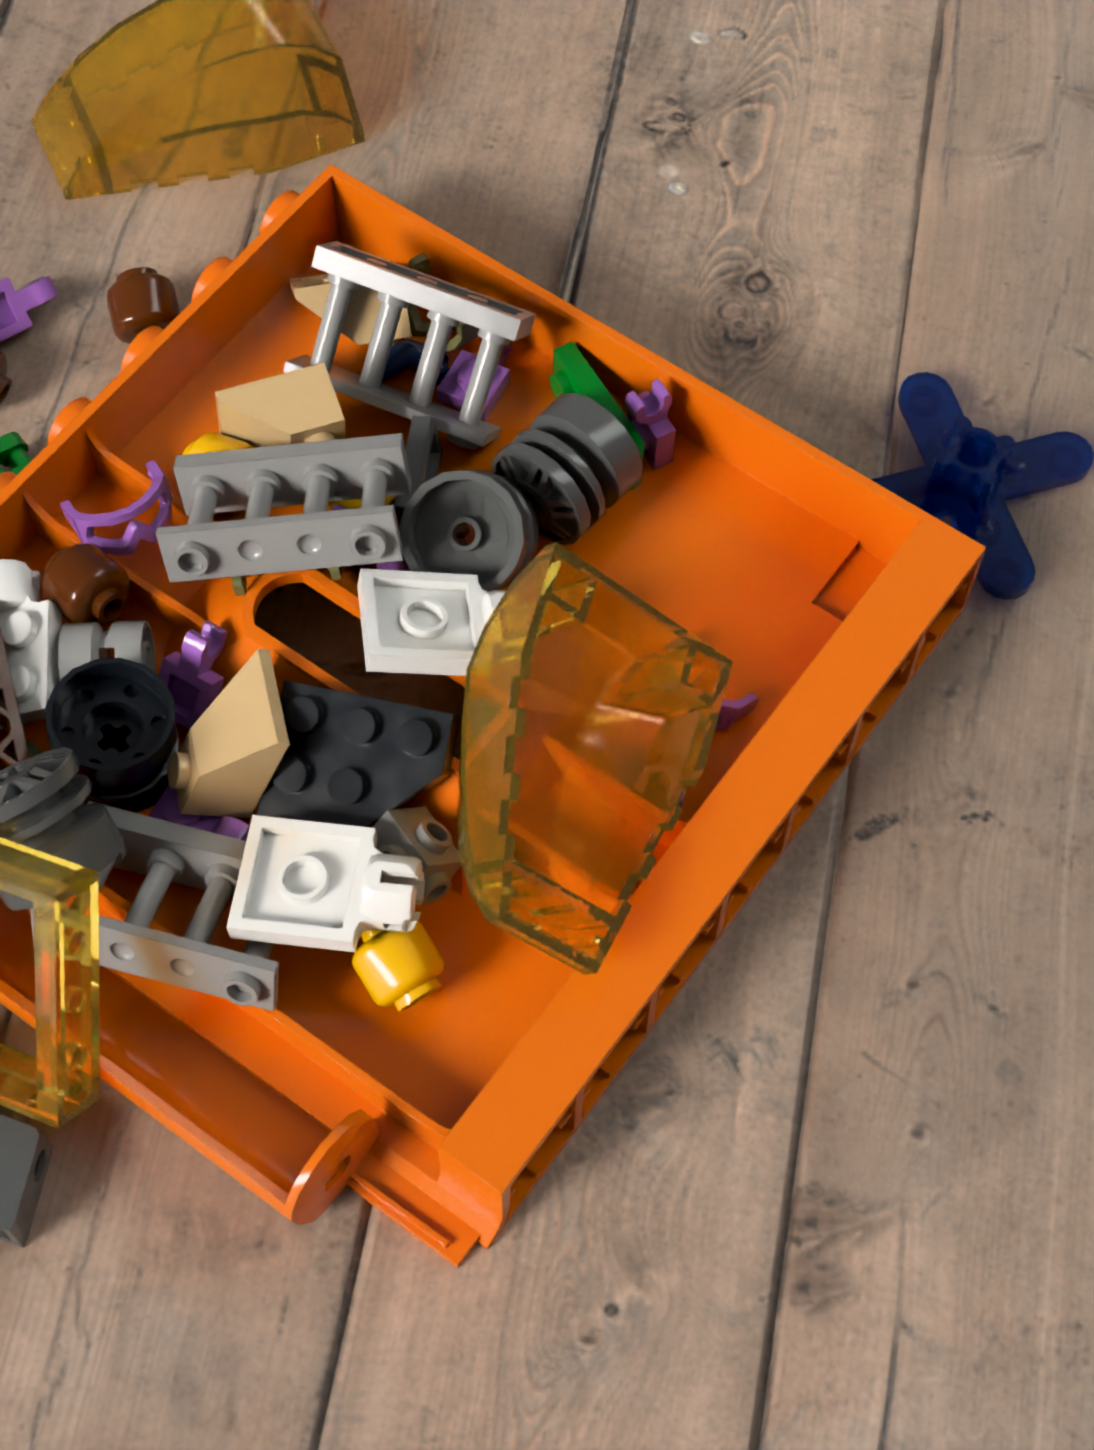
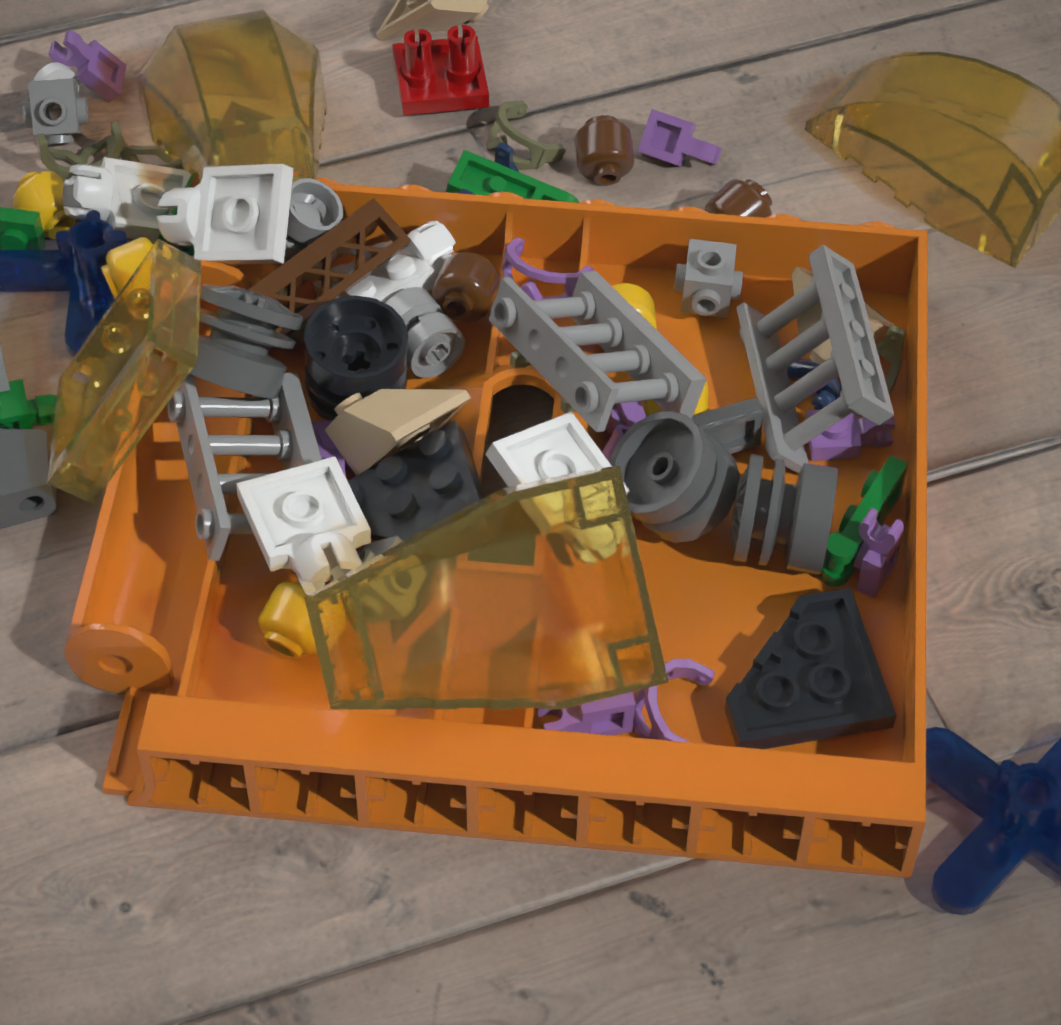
camera: 60 degrees right, 10 degrees down
(190, 675) = (446, 373): medium lavender plate -> none
(221, 363) = (707, 287): none -> light grey brick
(282, 409) = (693, 319): tan slope -> none
(740, 557) = (811, 679): none -> black plate

